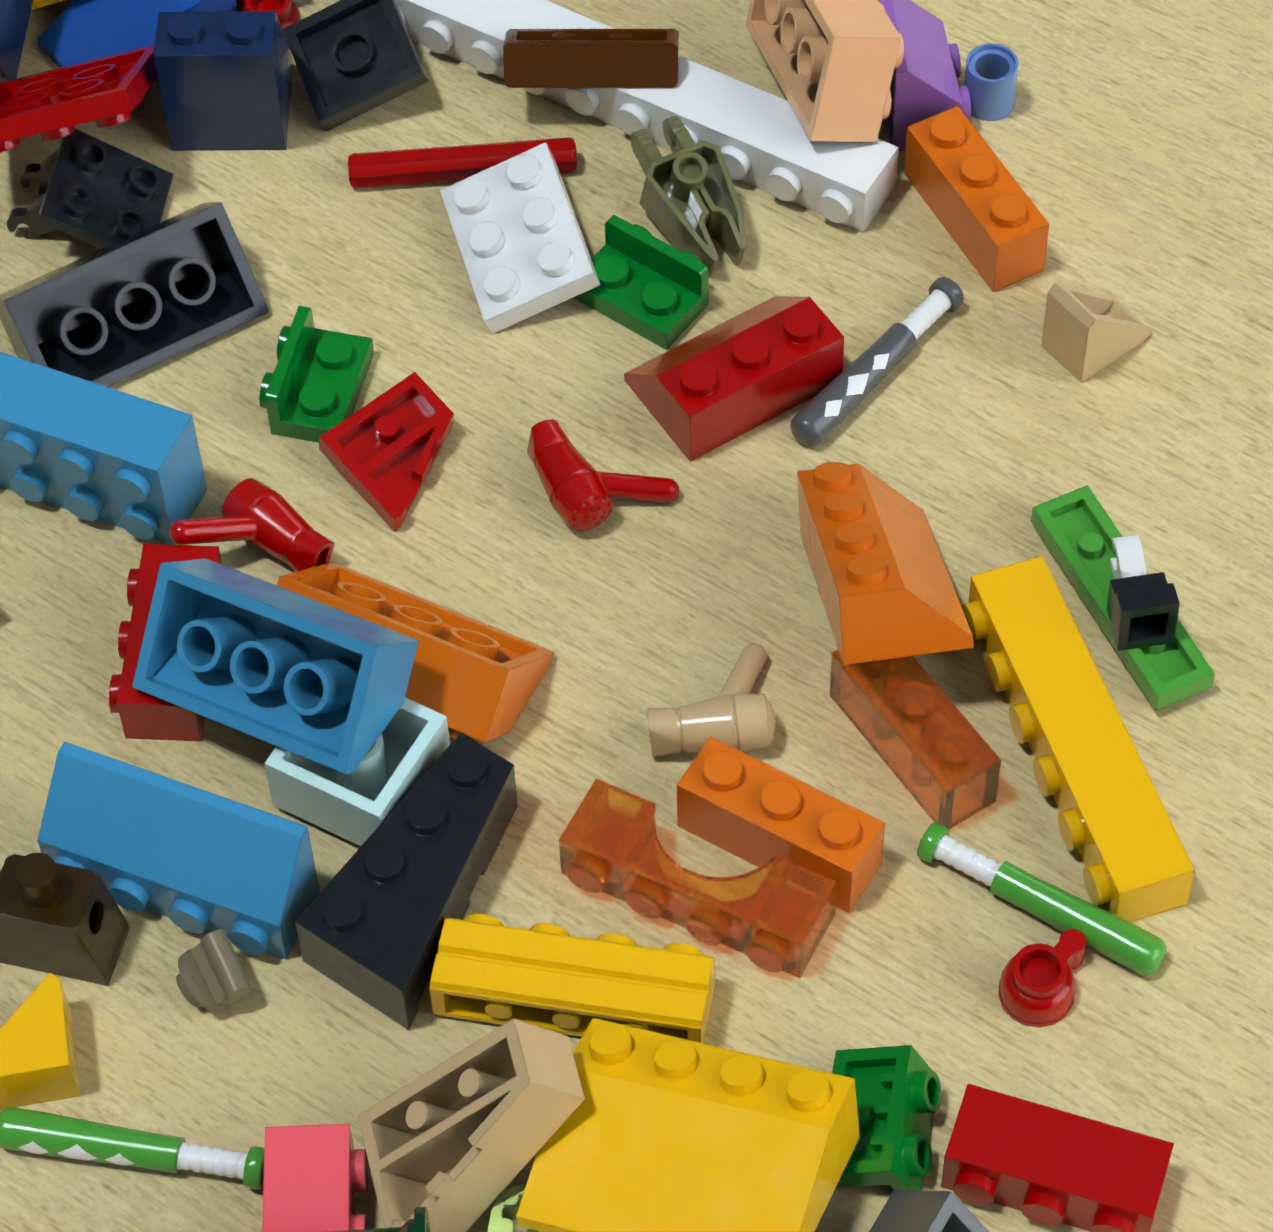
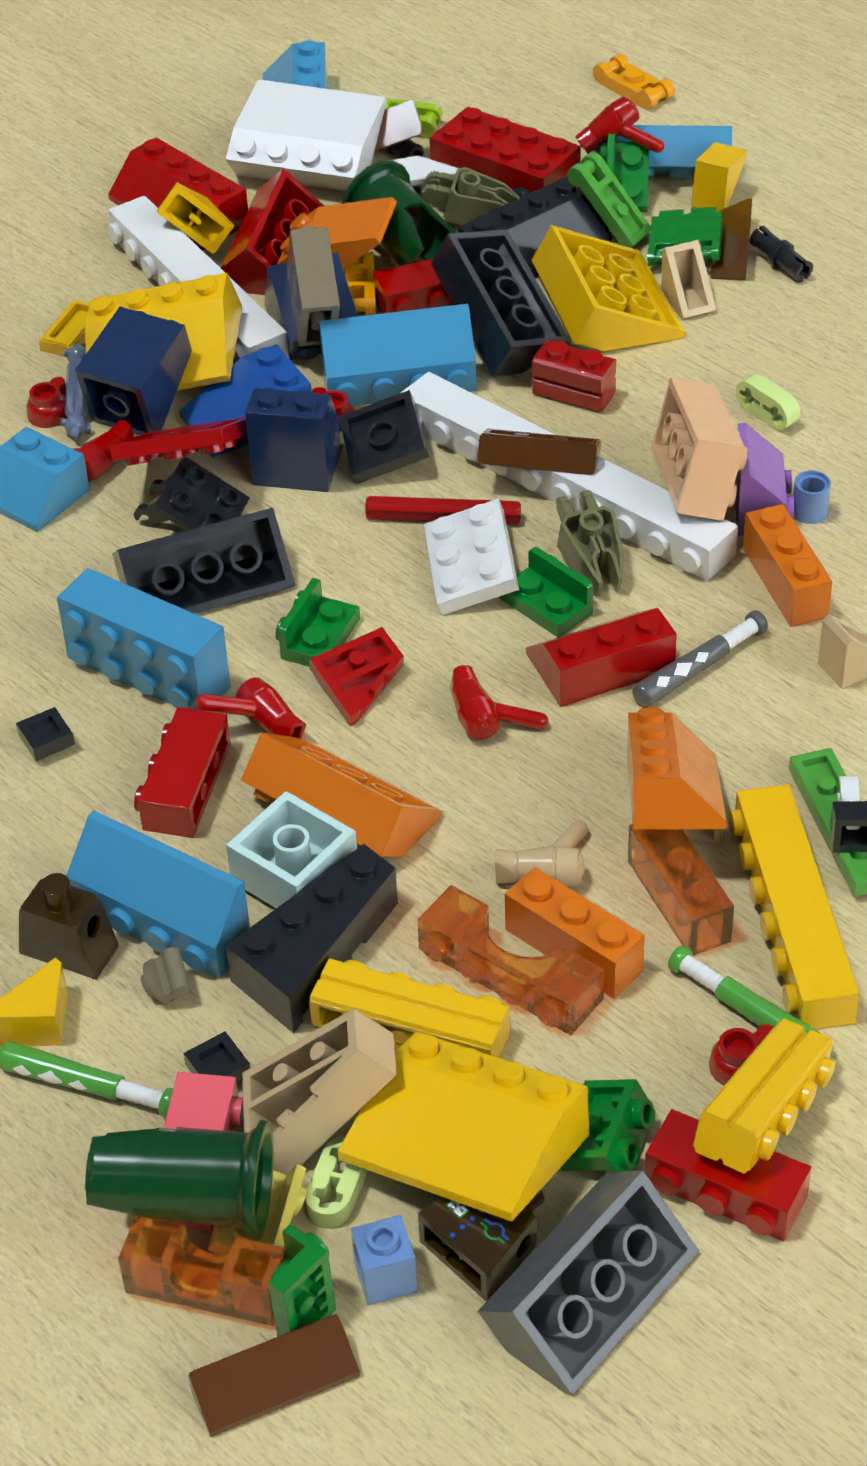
camera: 10 degrees right, 10 degrees down
(272, 662) = (243, 781): dark azure slope -> none
(313, 1093) = (217, 1057): none -> black plate
(1093, 1048) = (765, 1096): none -> yellow brick

